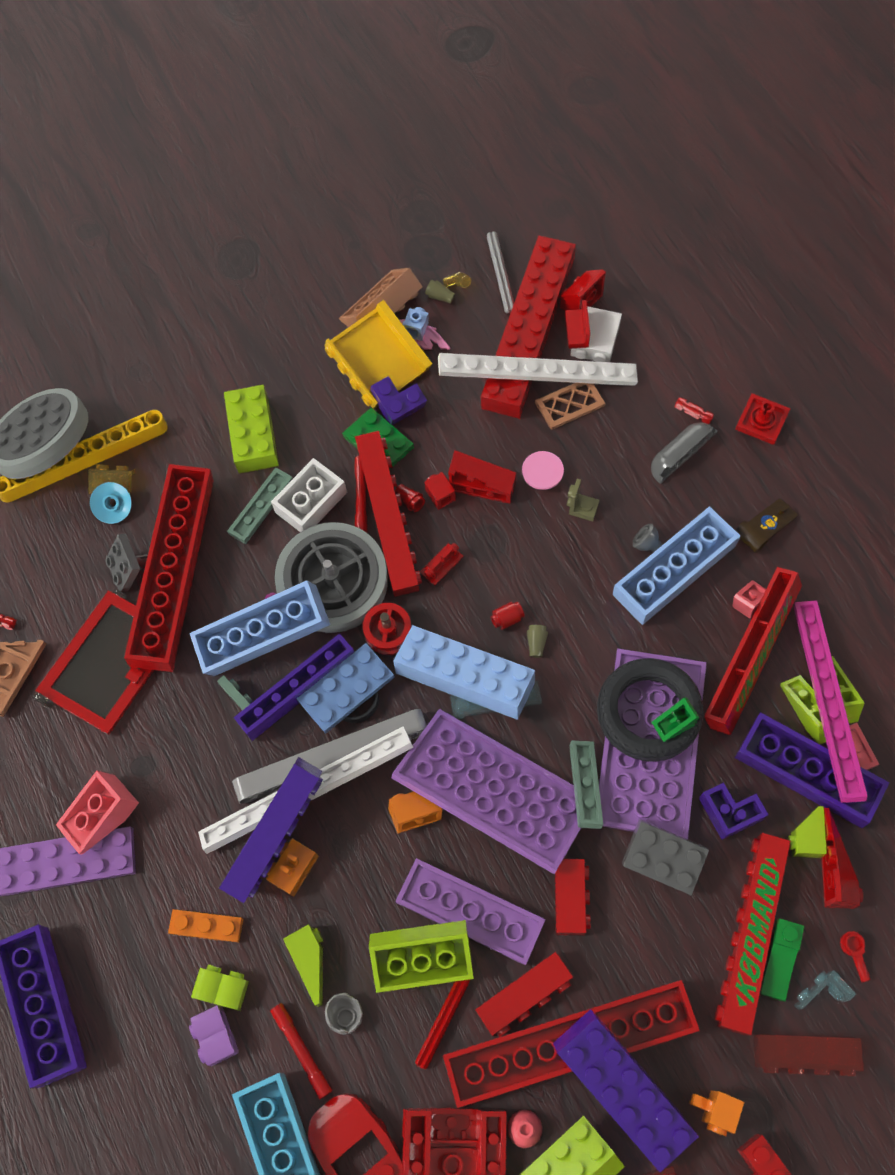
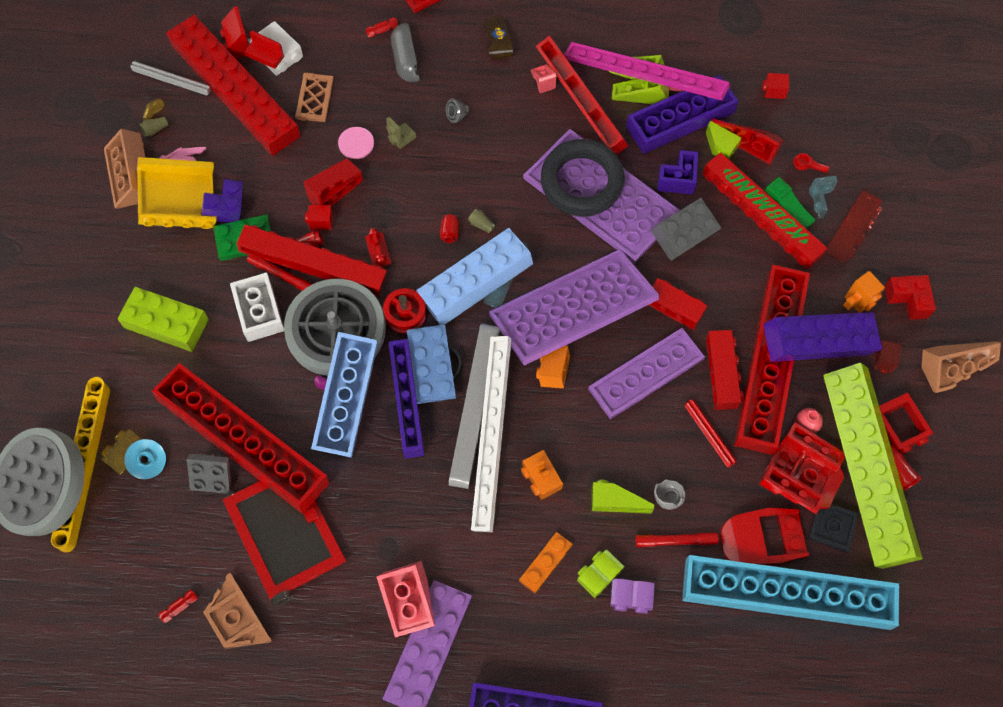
camera: 65 degrees left, 0 degrees up
(231, 689) = (375, 447): sand green plate -> none
(259, 506) = (235, 348): sand green plate -> none
(269, 833) = (511, 465): dark purple brick -> none
(417, 320) = (167, 151): light blue brick -> none
(420, 956) = (661, 417): lime brick -> none
(537, 369) = (276, 97): white plate -> none
(586, 784) = (607, 248): sand green plate -> none
(675, 565) = (490, 104): light blue brick -> none
(676, 720) = (605, 159): green slope -> none

